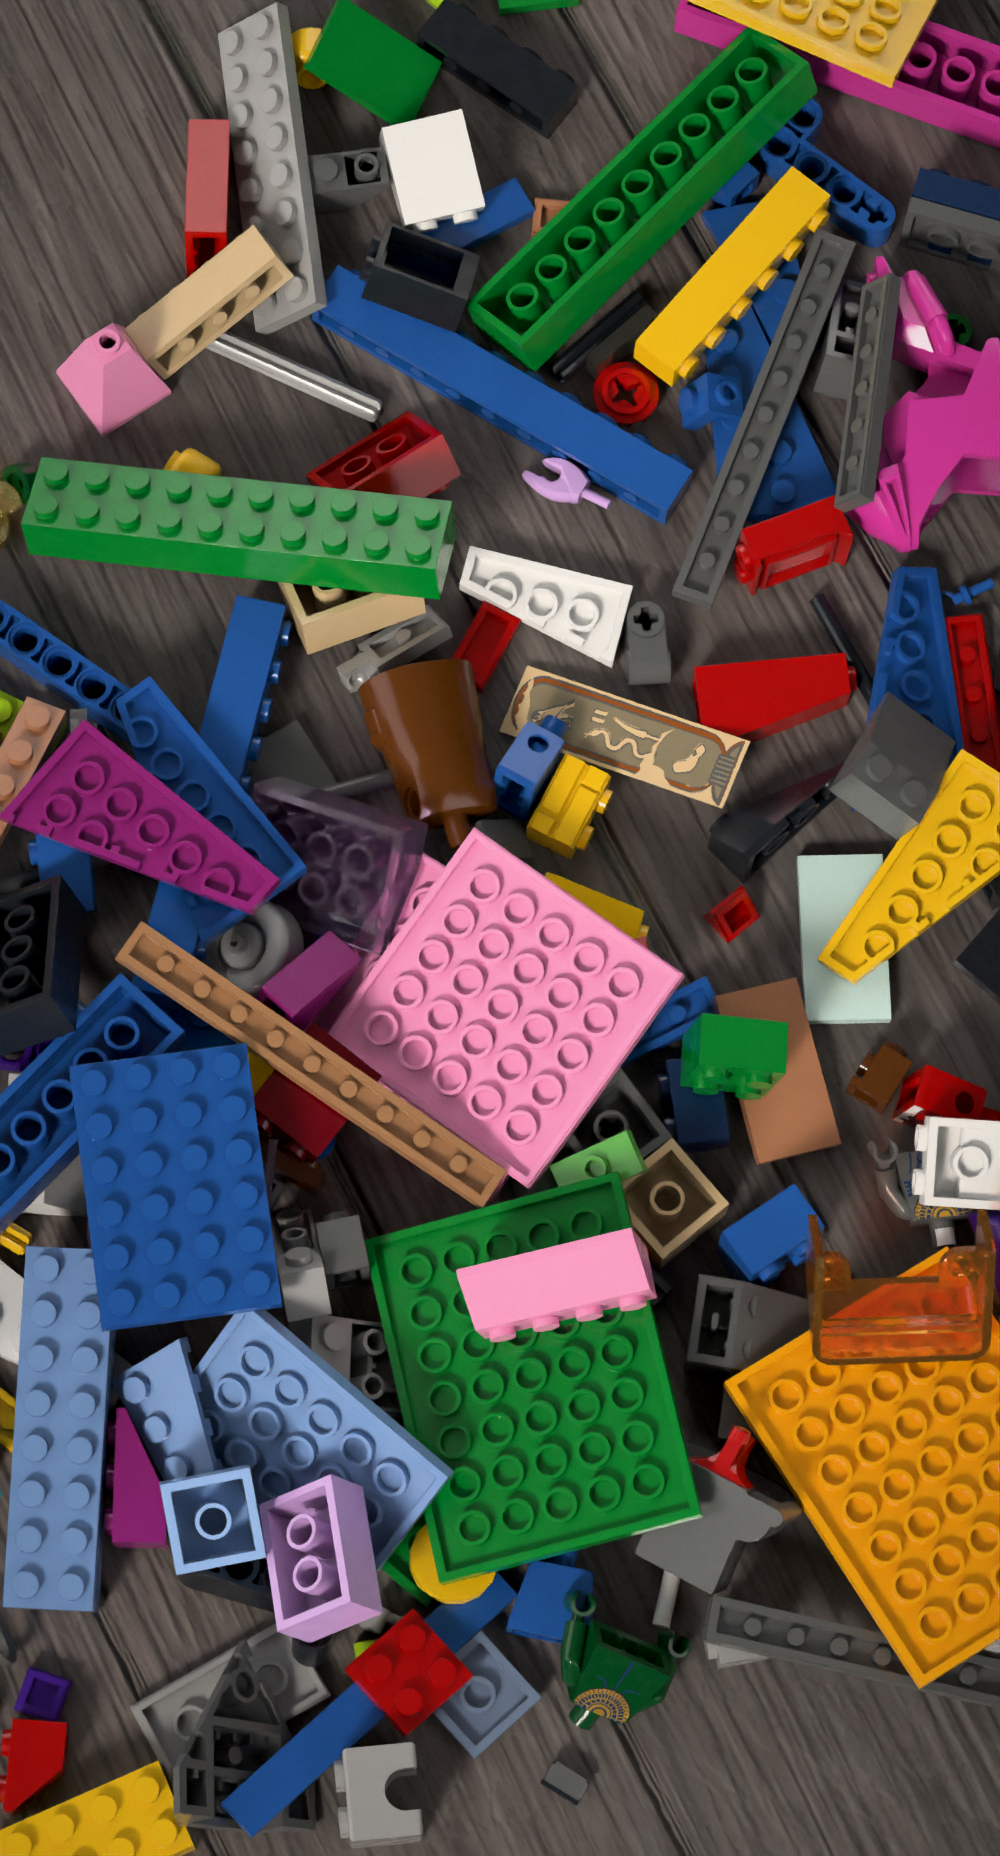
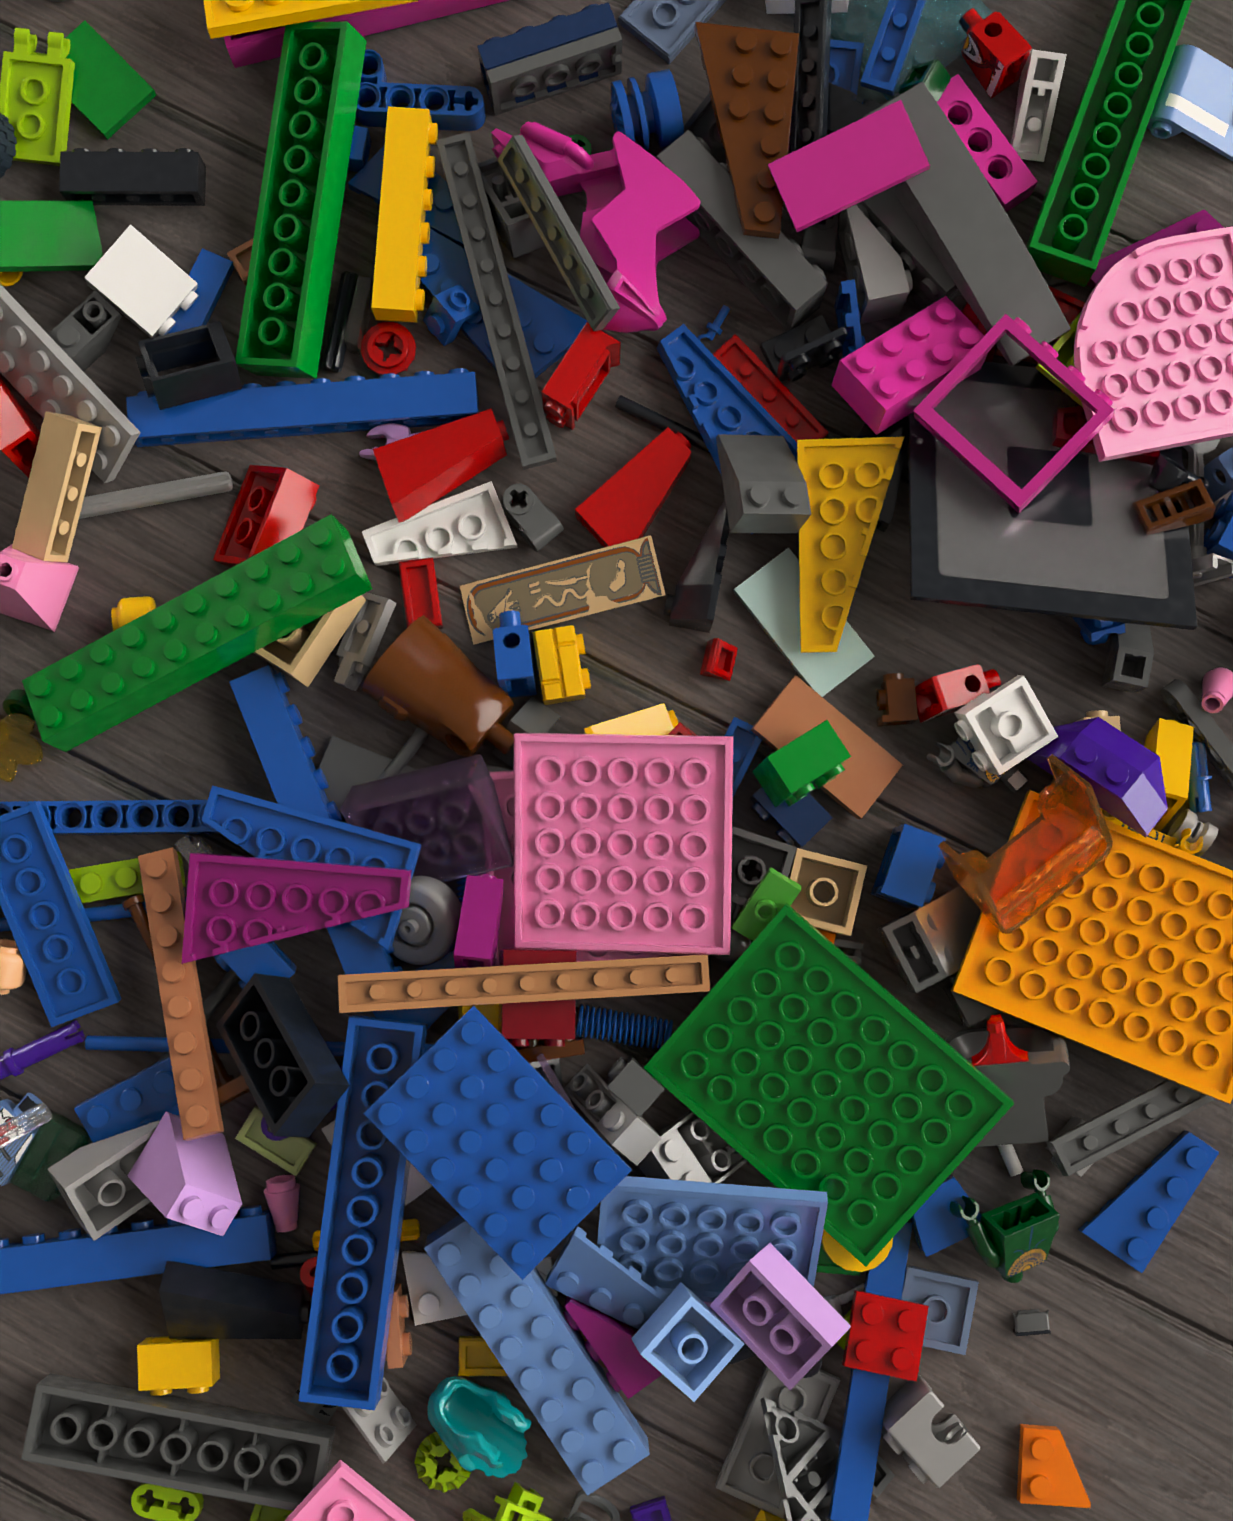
camera: 35 degrees left, 10 degrees up
(339, 1161) = (580, 1026): none -> blue piece
(558, 1285) = (807, 1018): bright pink slope -> none
(595, 531) = (439, 460): none -> red slope
(768, 1756) = (1150, 1204): none -> blue wing

